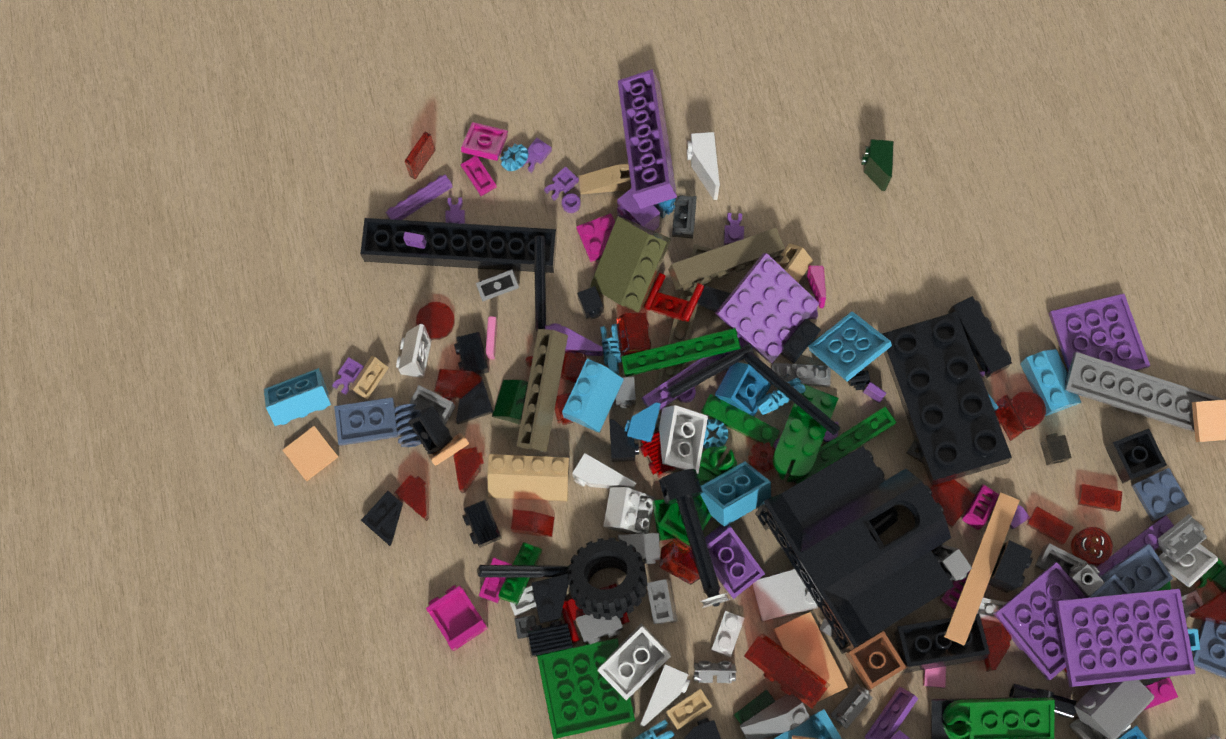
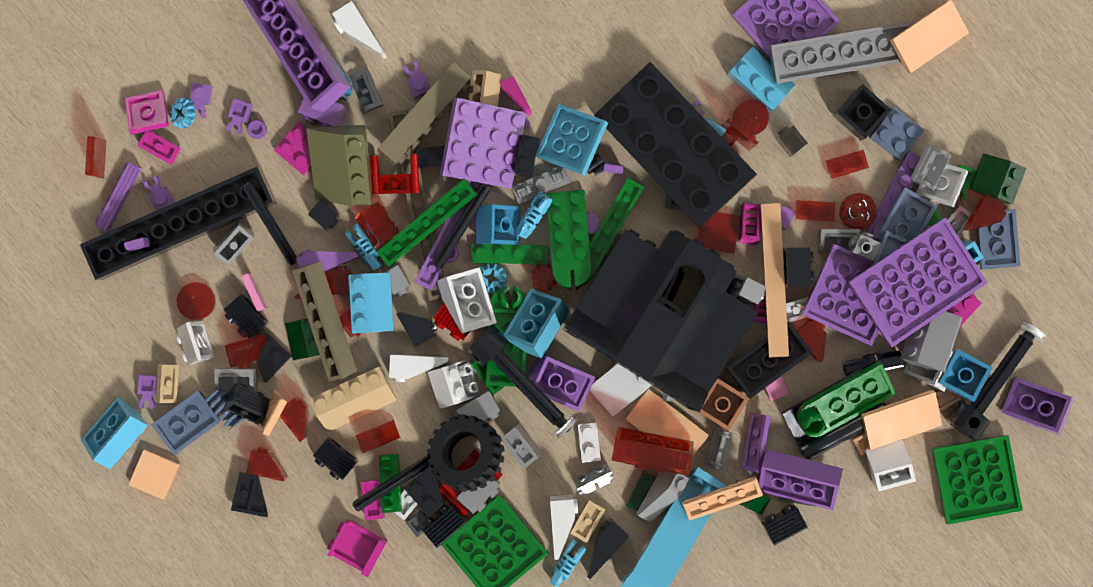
camera: 25 degrees left, 15 degrees up
(606, 180) = (275, 94): tan slope -> none
(634, 661) = (523, 507): white slope -> none
(643, 423) = (427, 305): dark azure slope -> none
(679, 561) = (516, 405): clear red slope -> none
(792, 393) = (541, 210): black axle -> none
(982, 340) = (681, 70): black brick -> none

